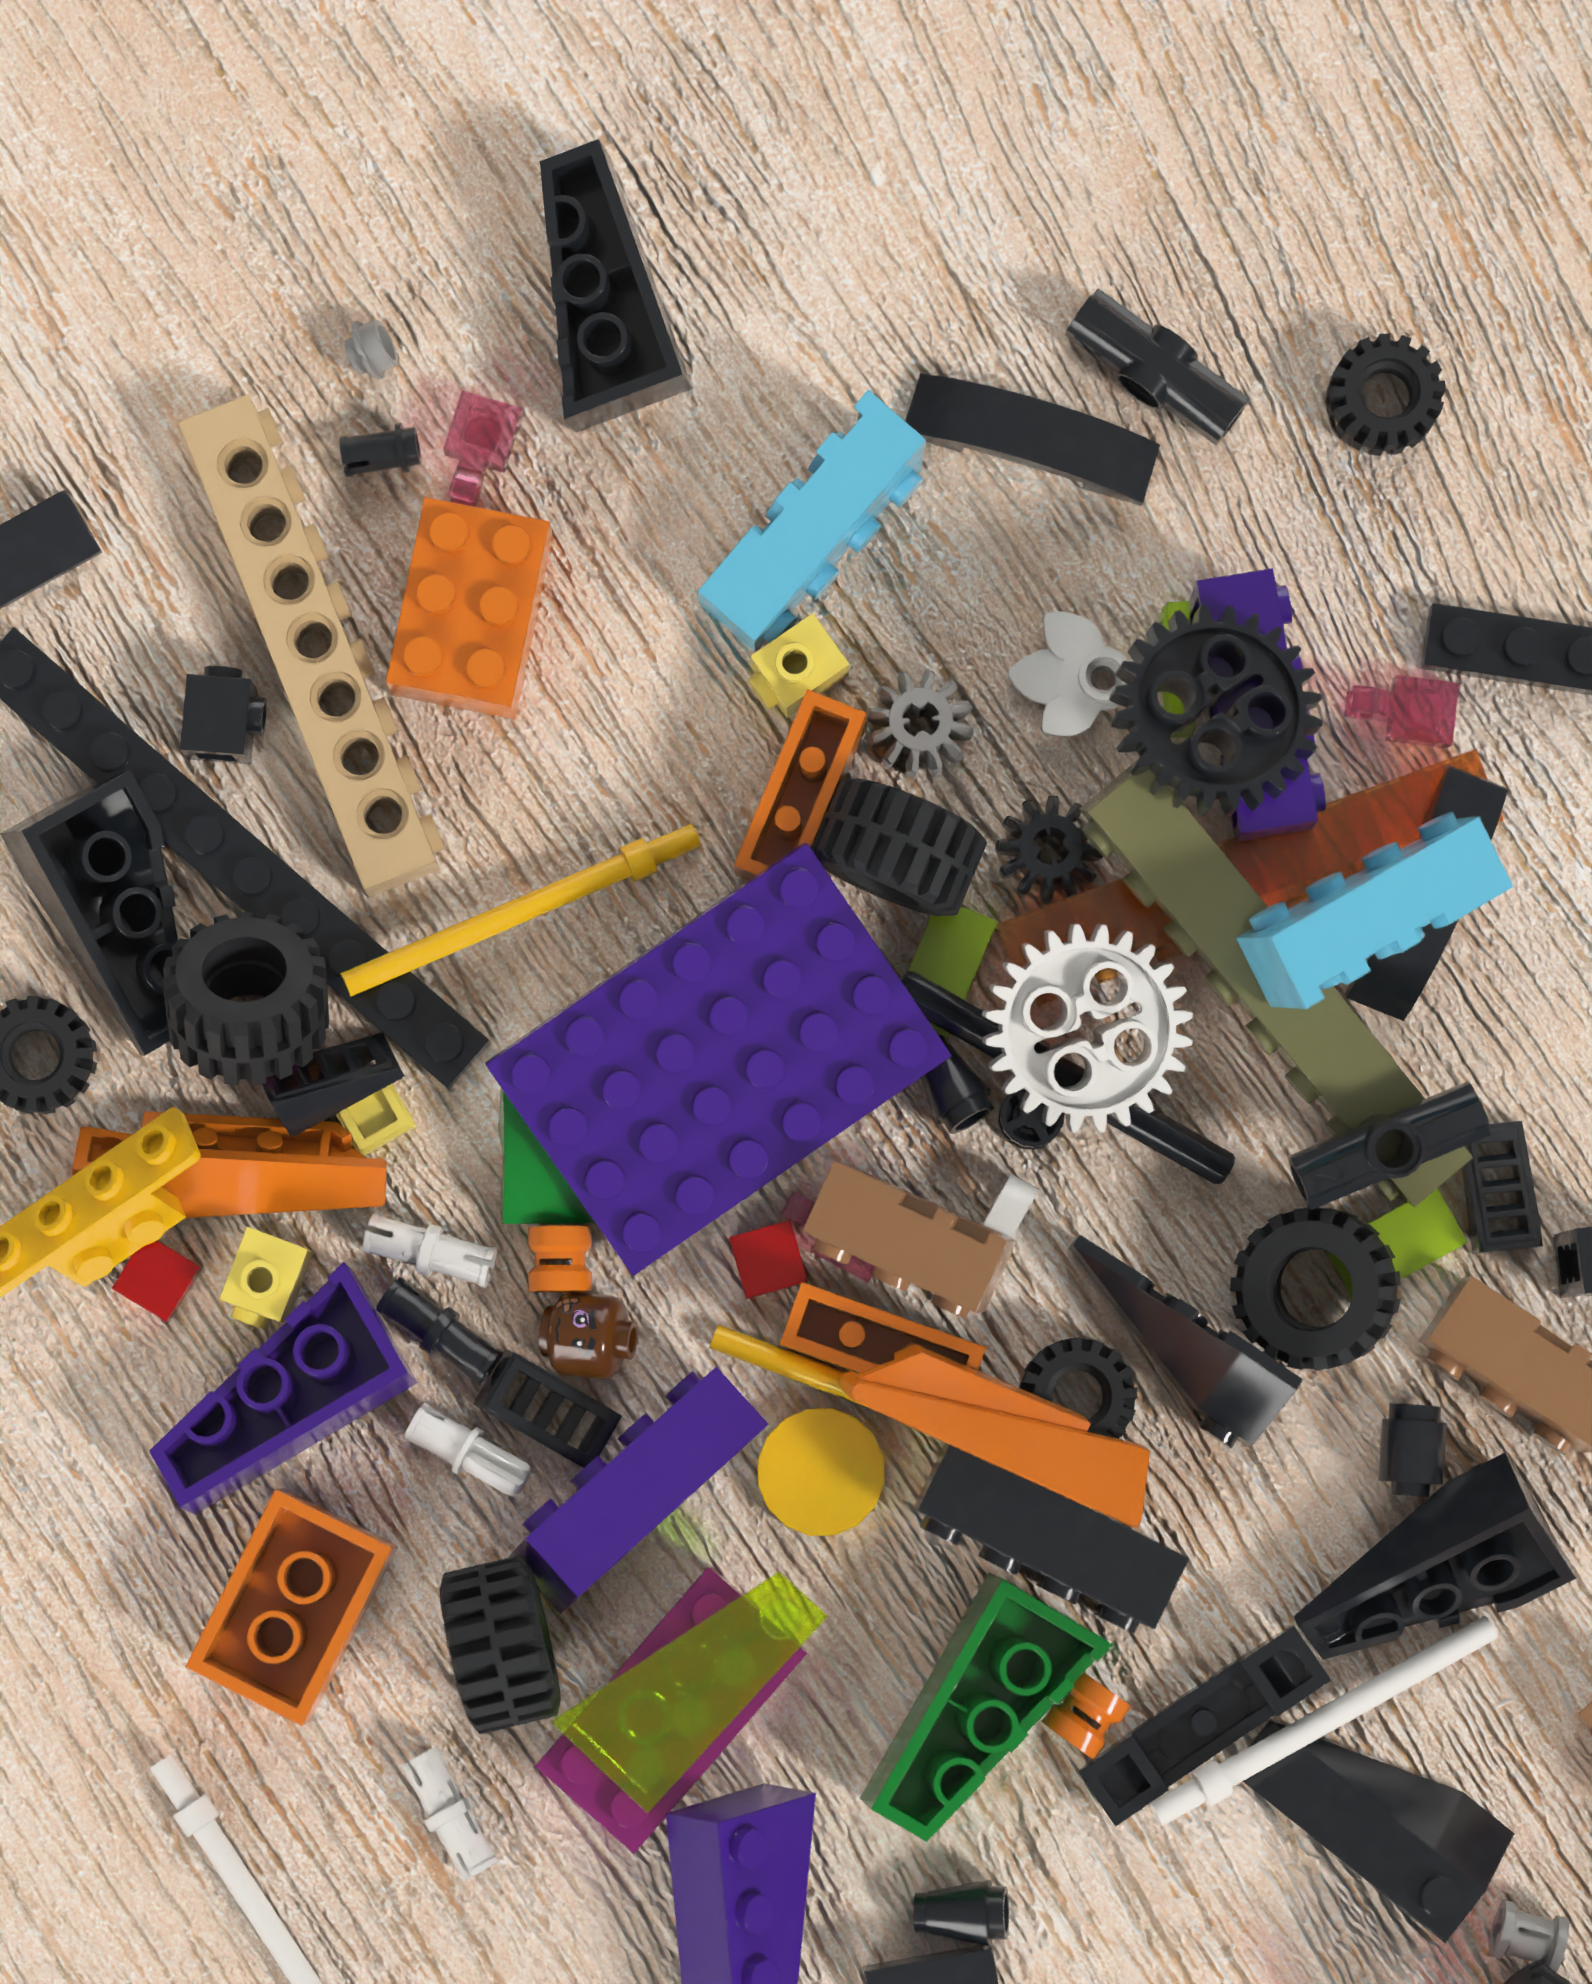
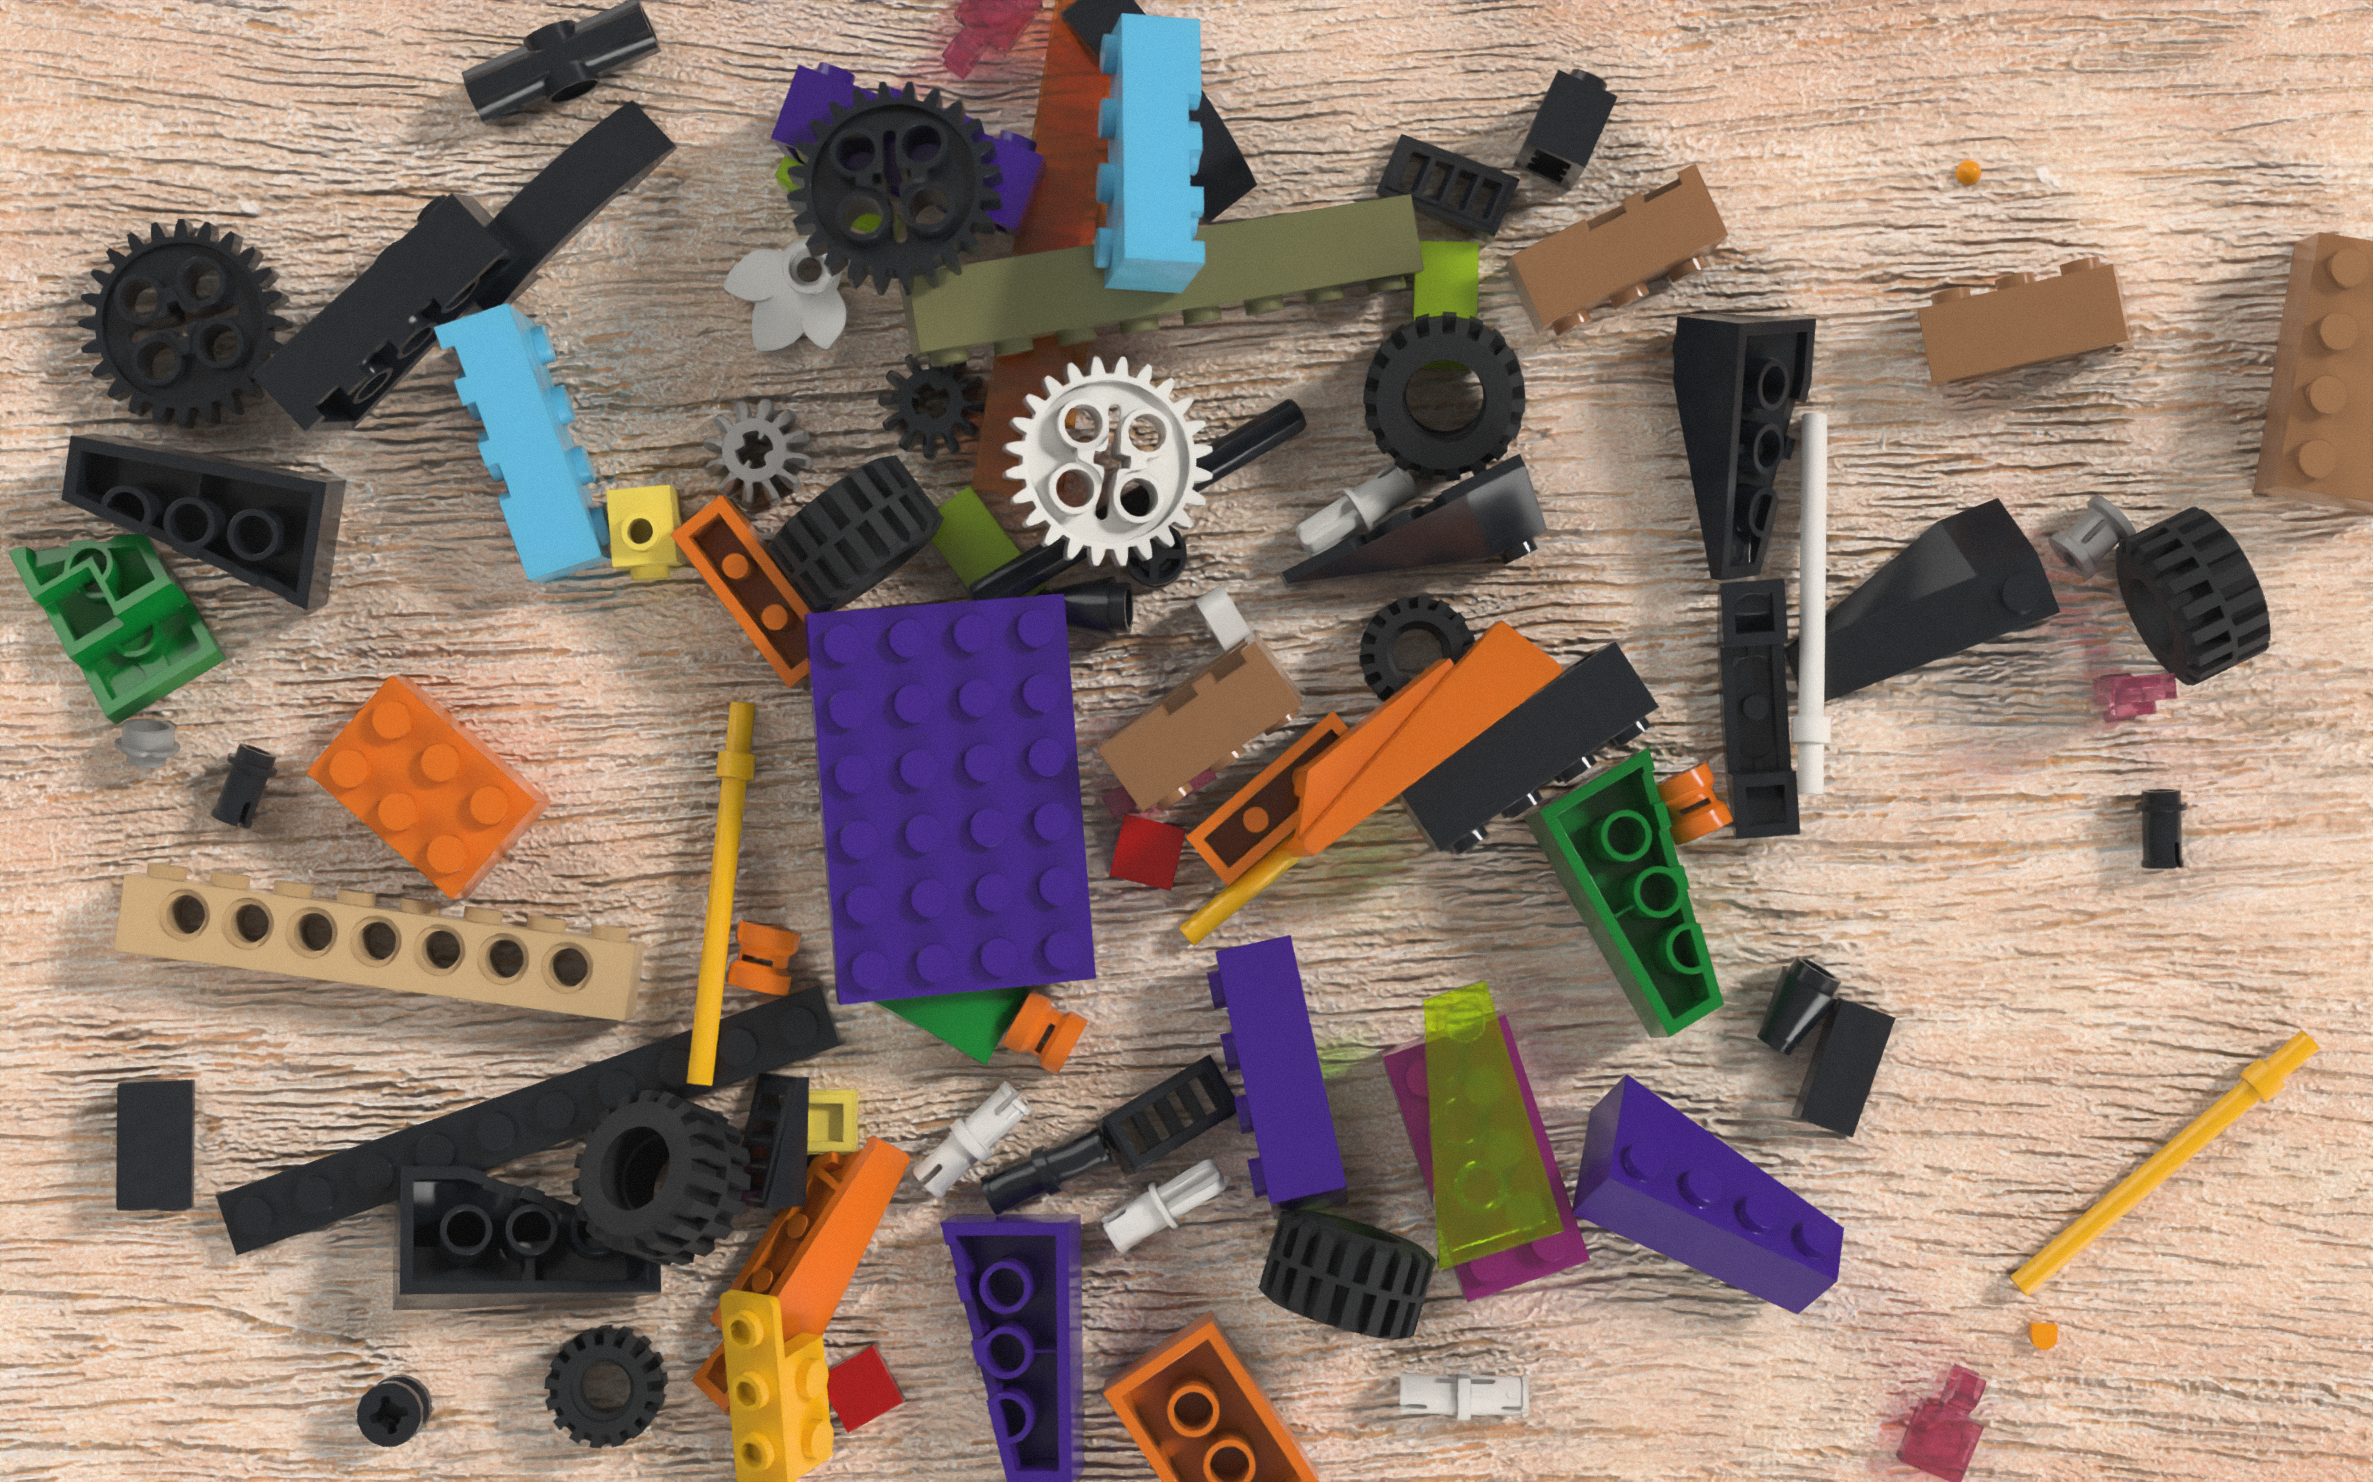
camera: 55 degrees left, 5 degrees up
(221, 716) = (400, 1058): black brick -> none
(265, 1278) = (915, 1296): light yellow brick -> none
(464, 267) = (120, 618): none -> green slope
(480, 439) = (283, 692): clear pink plate -> none
(499, 972) = (767, 943): none -> orange wheel
(587, 1335) = (1124, 1045): reddish brown head -> none
(707, 215) = (174, 270): none -> black gear
(821, 1472) = (1355, 911): yellow tile -> none
(854, 345) = (387, 317): none -> black wedge
(1172, 1269) = (1356, 510): none -> white axle
(1412, 1449) = (1628, 393): black brick -> none
(1427, 1132) = (1367, 220): black piece -> none

